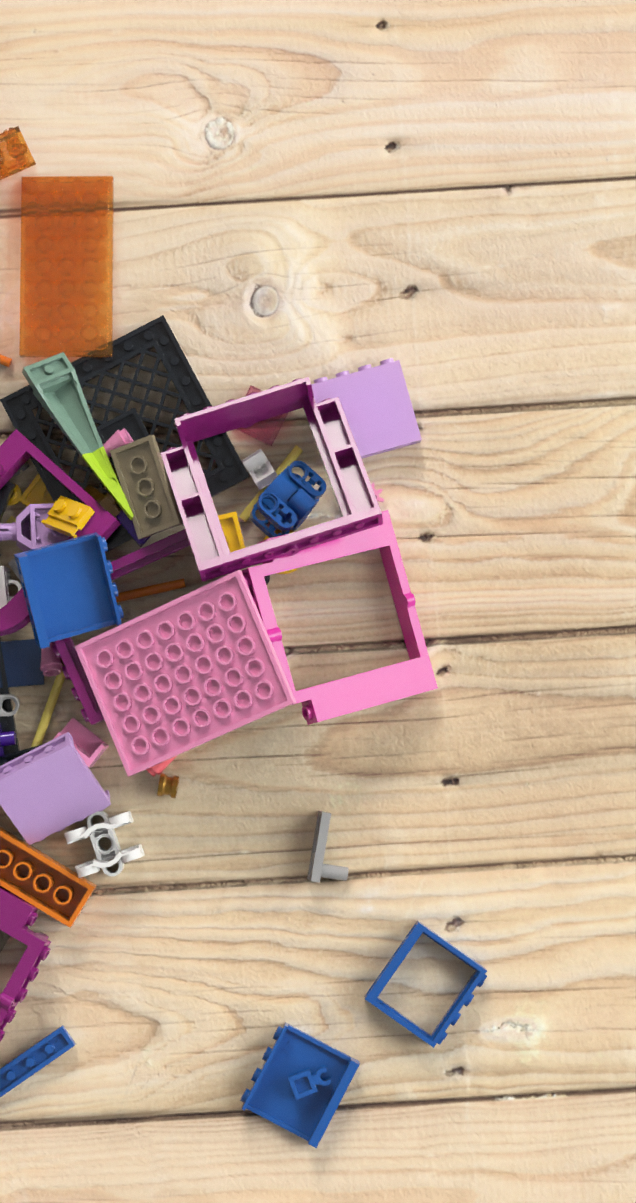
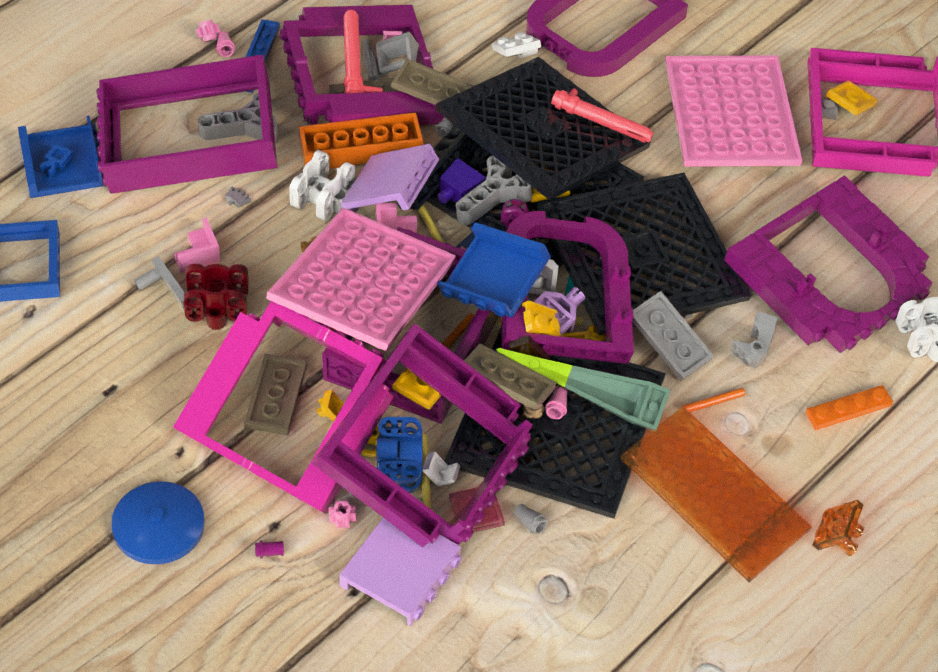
camera: 135 degrees right, 35 degrees down
(39, 1109) = (225, 46): none -> bright pink cone
(42, 1138) = (208, 30): none -> bright pink gear
(88, 993) = (234, 122): none -> light grey beam
(182, 906) = (237, 197): none -> light grey piece
(229, 369) = (532, 520): none -> light grey cone
(234, 1078) = (177, 86): none -> magenta door
(264, 864) = (203, 251): none -> bright pink panel
(292, 606) = (330, 405): none -> yellow tile
(298, 785) = (215, 292): none -> dark red piece
(329, 654) = (275, 394): none -> dark tan plate
(449, 515) = (269, 549): none -> magenta pin
(512, 614) = (158, 522): none -> blue dish

